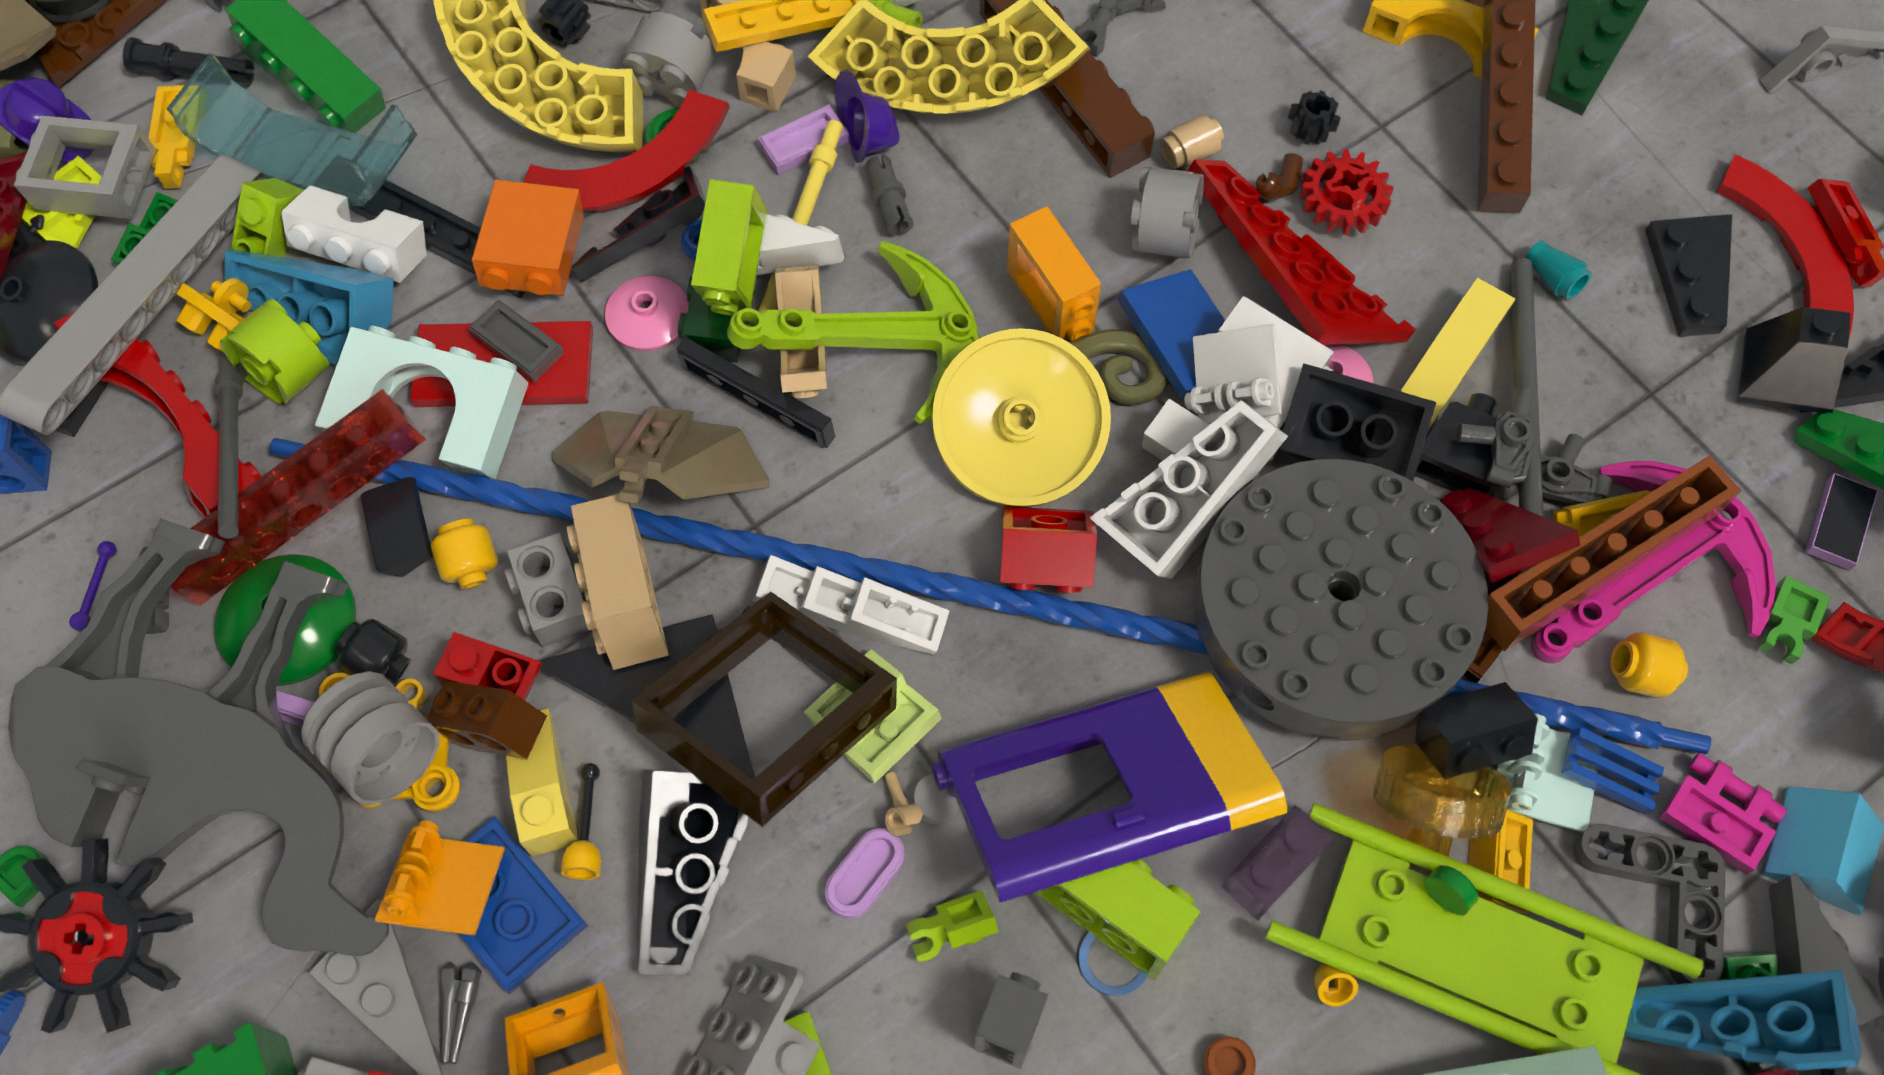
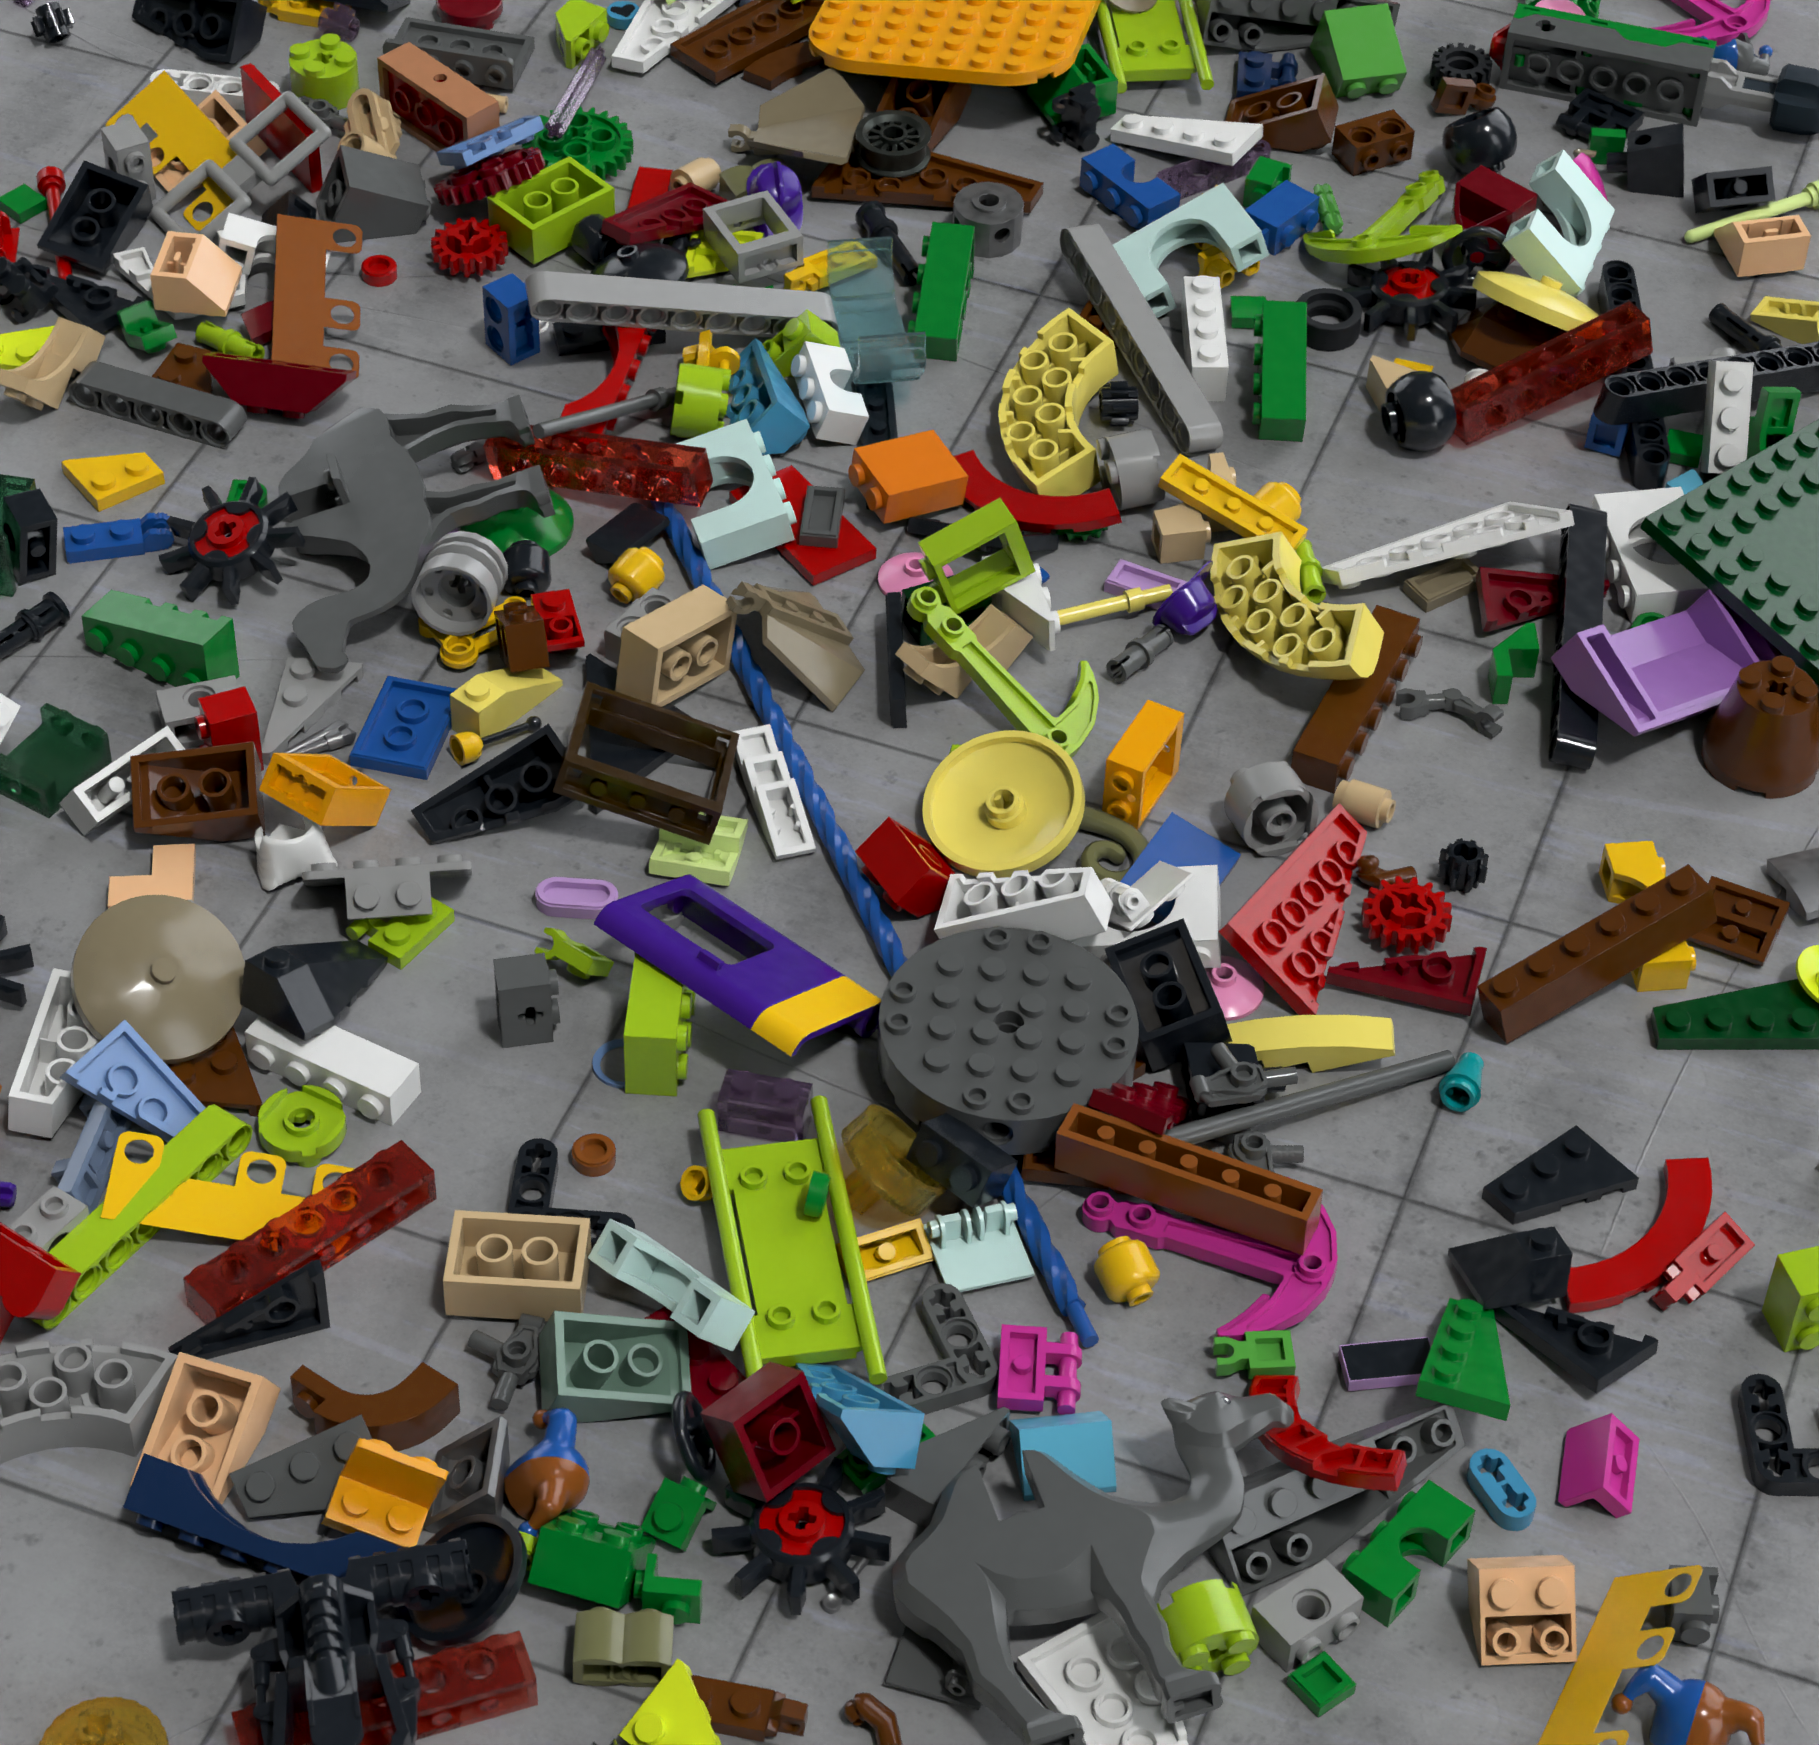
camera: 55 degrees right, 20 degrees down
(440, 882) = (393, 672): light orange hinge -> none
(902, 814) = (632, 886): tan hand -> none
(1427, 222) = (1418, 979): none -> dark red wing
(1613, 762) = (1007, 1249): blue tile -> none

